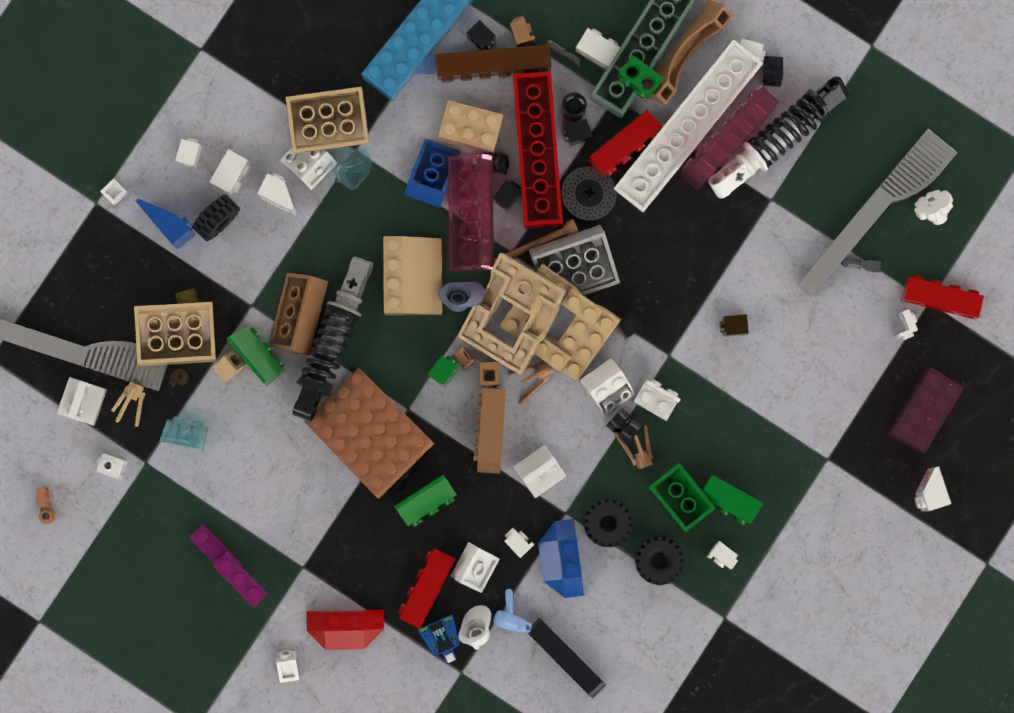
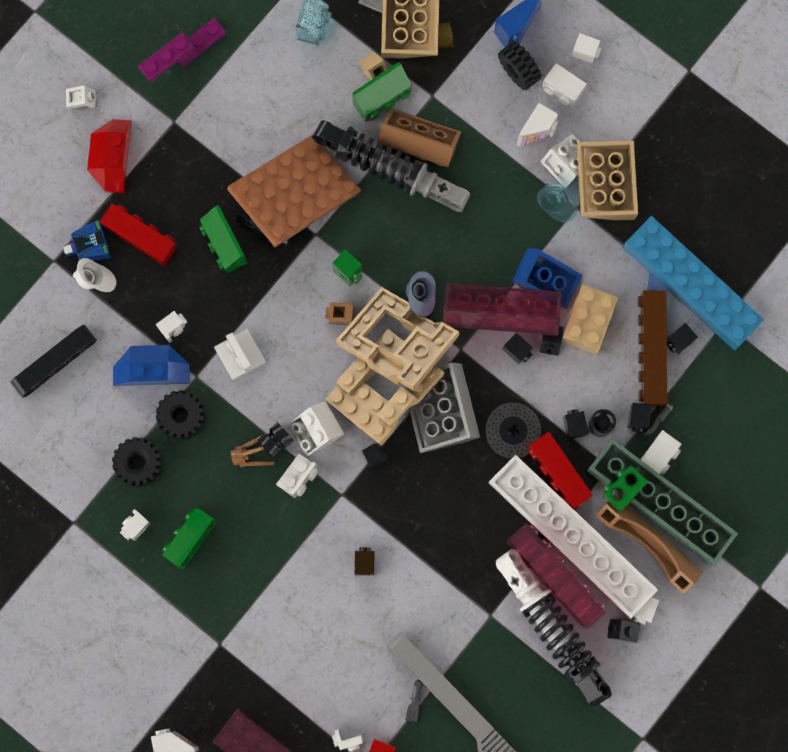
camera: 95 degrees right, 5 degrees down
(178, 378) = (368, 21): dark brown piece -> none
(412, 275) = (446, 248): tan slope -> none
(463, 358) = (359, 291): medium nougat bush -> none
(474, 567) = (151, 281): white bracket -> none
(491, 430) = (285, 308): medium nougat wedge -> none
(507, 619) = (97, 308): light blue piece -> none
(521, 32) = (682, 379): medium nougat brick -> none
(537, 150) = (560, 382): red brick -> none
(541, 371) = (337, 366): medium nougat plant -> none
(564, 71) = (639, 417): none -> black brick
(569, 229) = (478, 407): medium nougat piece -> none
(681, 497) = (195, 488): green slope -> none

